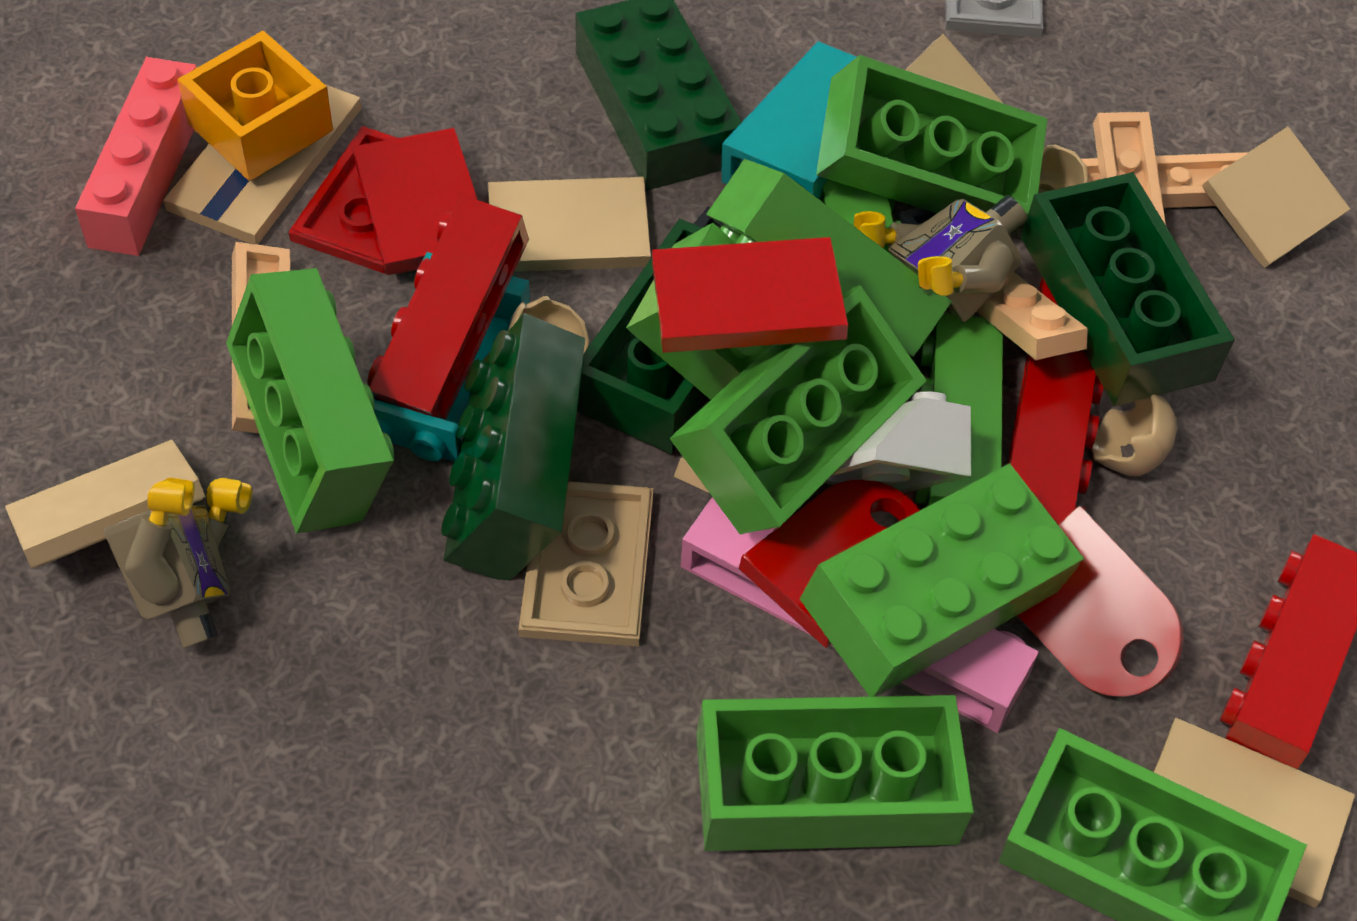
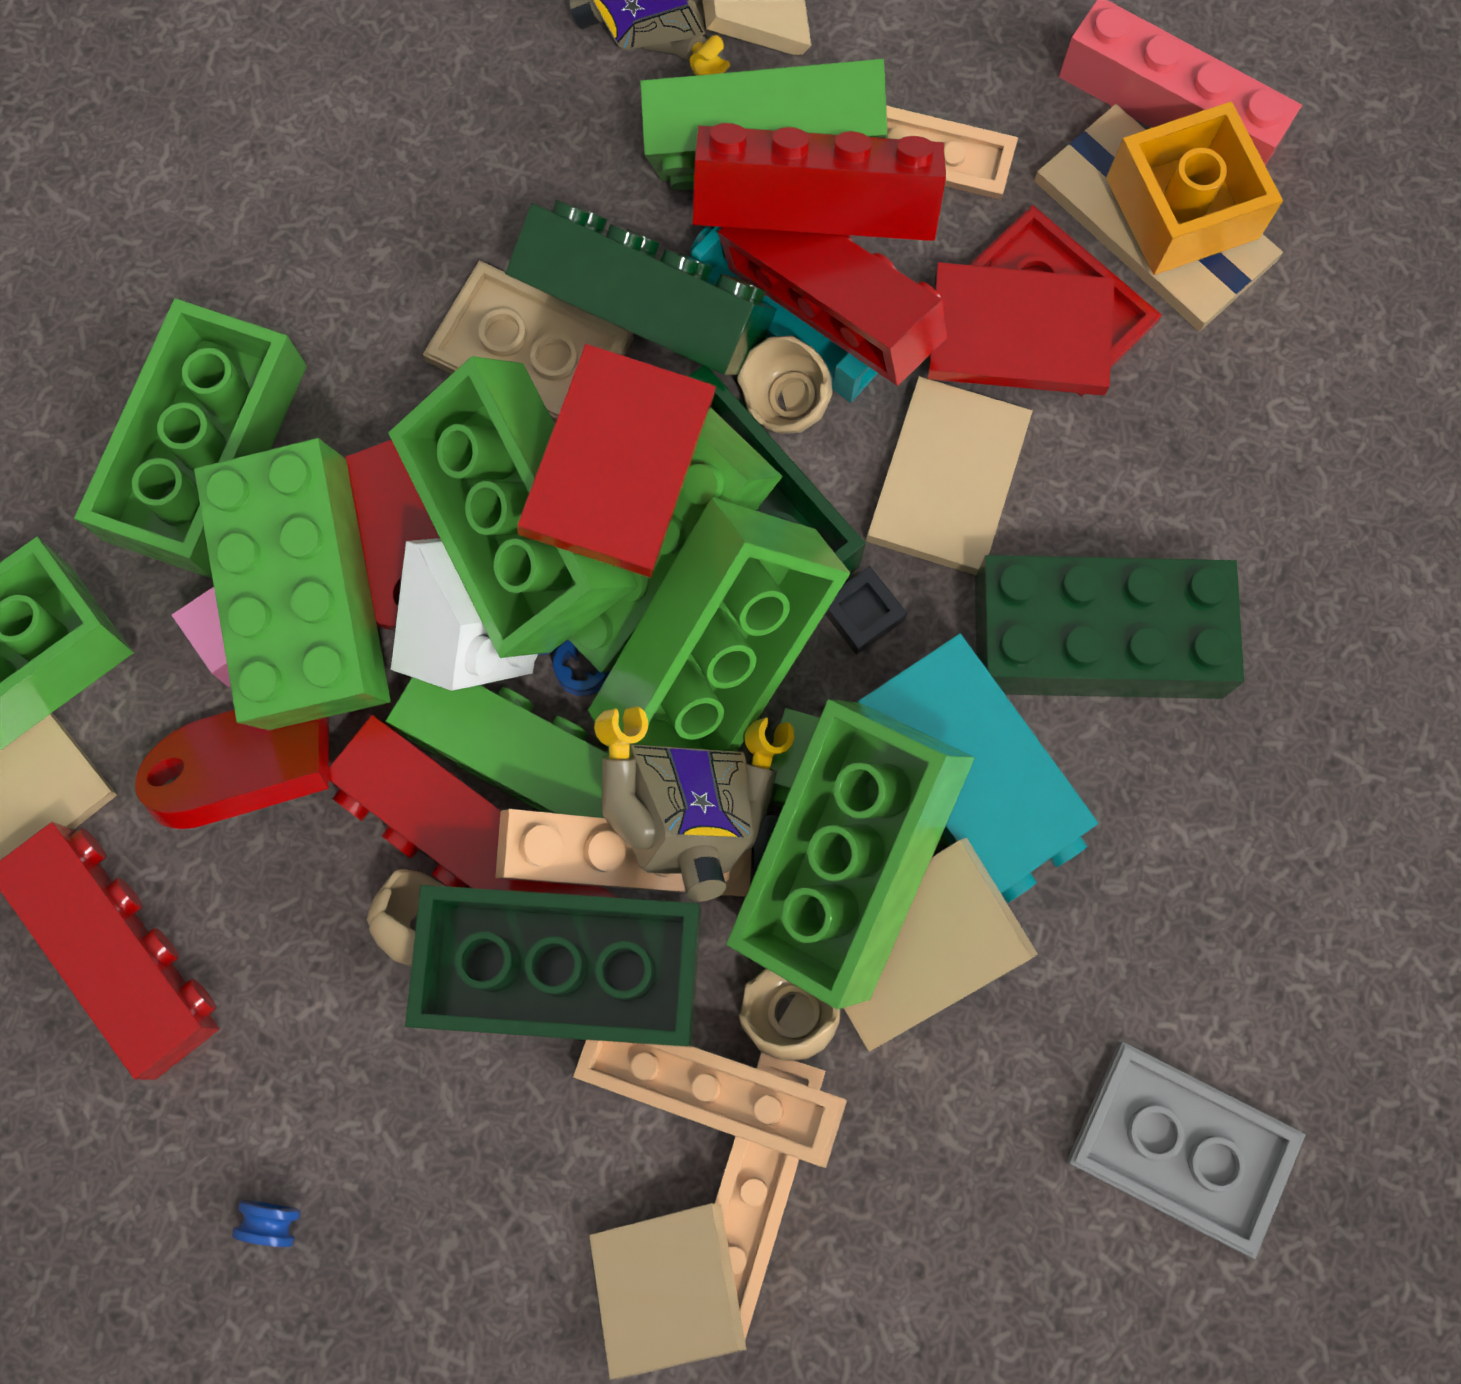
camera: 115 degrees right, 20 degrees up
(376, 320) = (818, 182): none -> red brick

